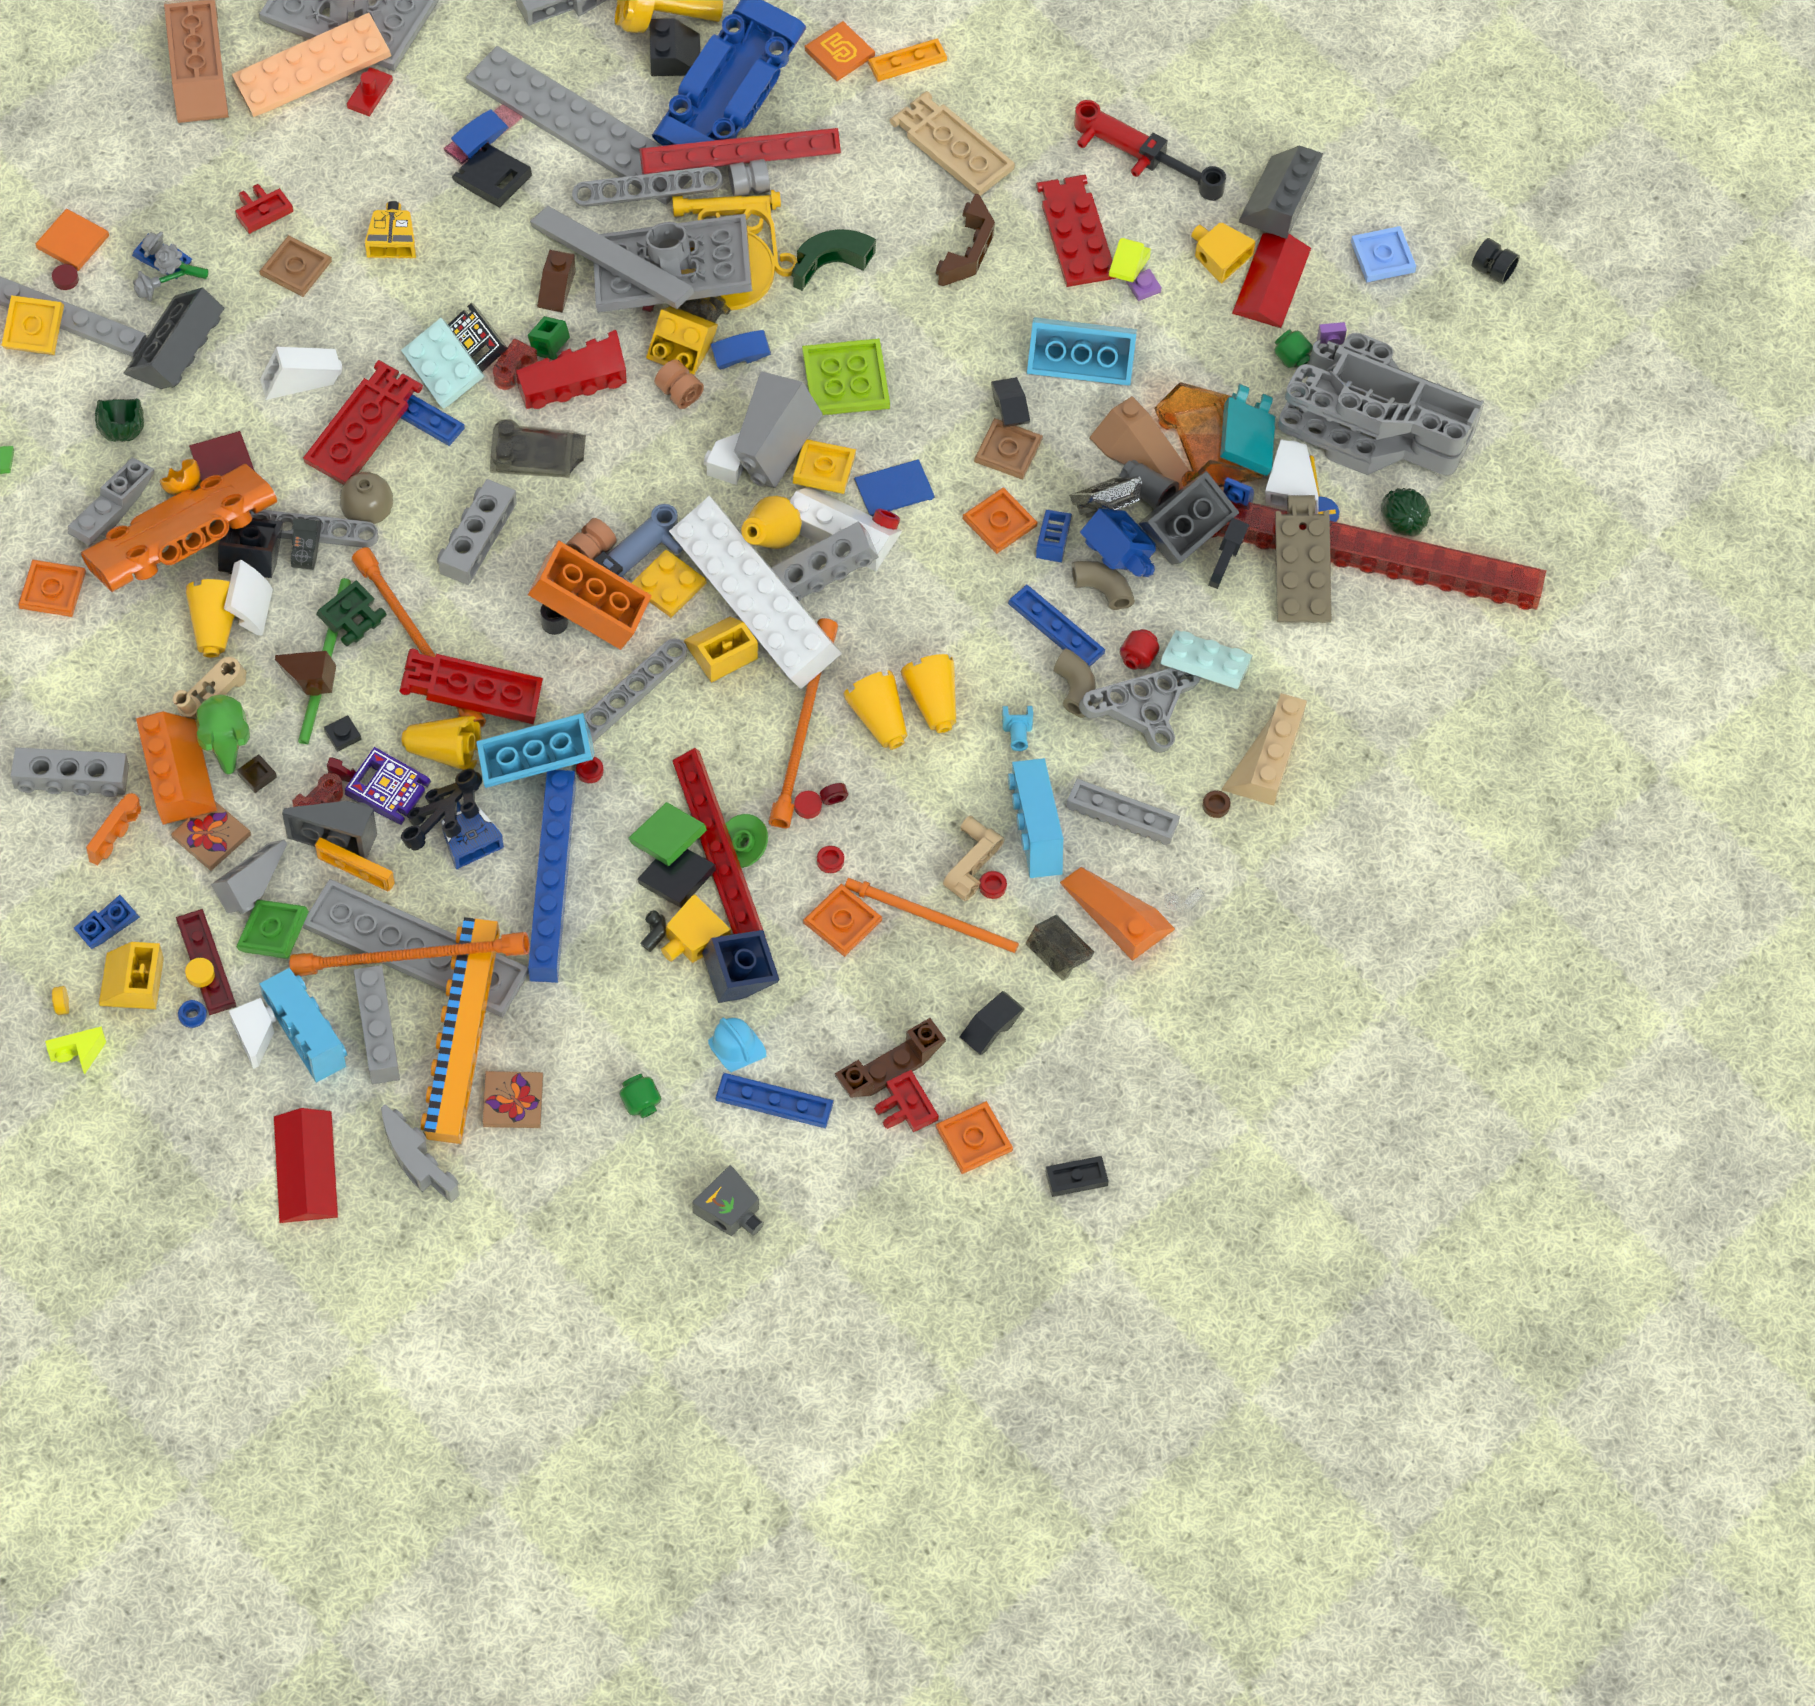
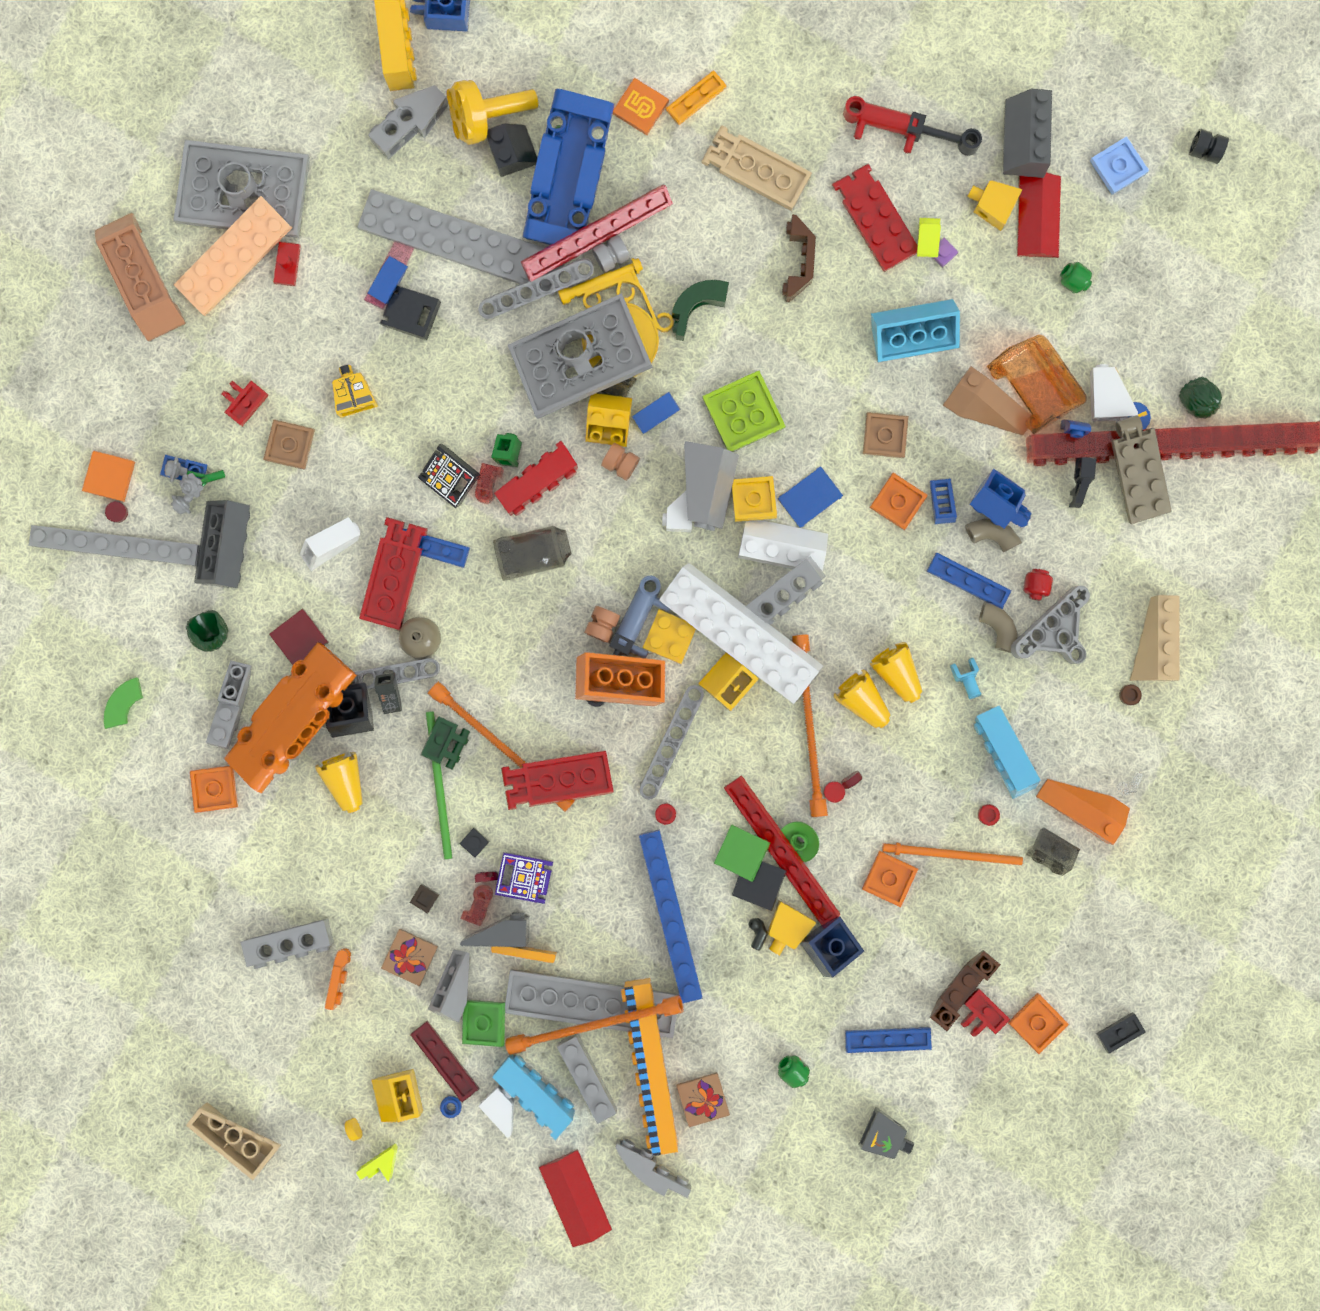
camera: 15 degrees left, 25 degrees up
(32, 325) = (109, 568): yellow plate -> none
(102, 926) = (361, 1053): blue slope -> none
(175, 766) = (363, 915): orange slope -> none
(189, 477) = (274, 674): light orange hair -> none
(199, 972) = (445, 1077): yellow tile -> none
(217, 678) = (370, 831): tan beam -> none
(222, 729) = (387, 881): bright green piece -> none
(248, 597) = (364, 759): white slope -> none
(309, 671) = (432, 807): reddish brown slope -> none
(442, 363) = (434, 500): light aqua plate -> none
(445, 741) = (553, 831): yellow cone -> none
(464, 566) = (511, 607): light grey brick -> none
(465, 786) = (574, 888): black plant -> none
(476, 840) = (597, 899): blue torso -> none
(535, 750) = (627, 827): medium azure slope -> none
(556, 280) = (494, 397): reddish brown slope -> none
(612, 257) = (532, 366): light grey tile -> none
(736, 1044) = (846, 1003): medium azure piece -> none
(772, 523) = (733, 572): yellow cone -> none
(830, 859) = (865, 831): red tile -> none
(886, 519) = (815, 530): red tile -> none
(960, 878) = (965, 820): tan beam -> none
(992, 1019) = (1026, 930): black slope -> none
(1011, 401) = (877, 394): black slope -> none
(1108, 494) = (983, 464): clear smoke slope -> none
(1122, 811) = (1066, 725): light grey gear -> none
(1154, 487) = (1002, 437): dark grey plant -> none
(1188, 518) = (1047, 465): dark grey slope -> none
(1206, 659) = (1091, 578): light aqua plate -> none
(1248, 432) = (1066, 367): teal tile -> none
(1332, 332) = (1102, 255): medium lavender plate -> none
(1370, 394) = (1205, 322): light grey connector -> none

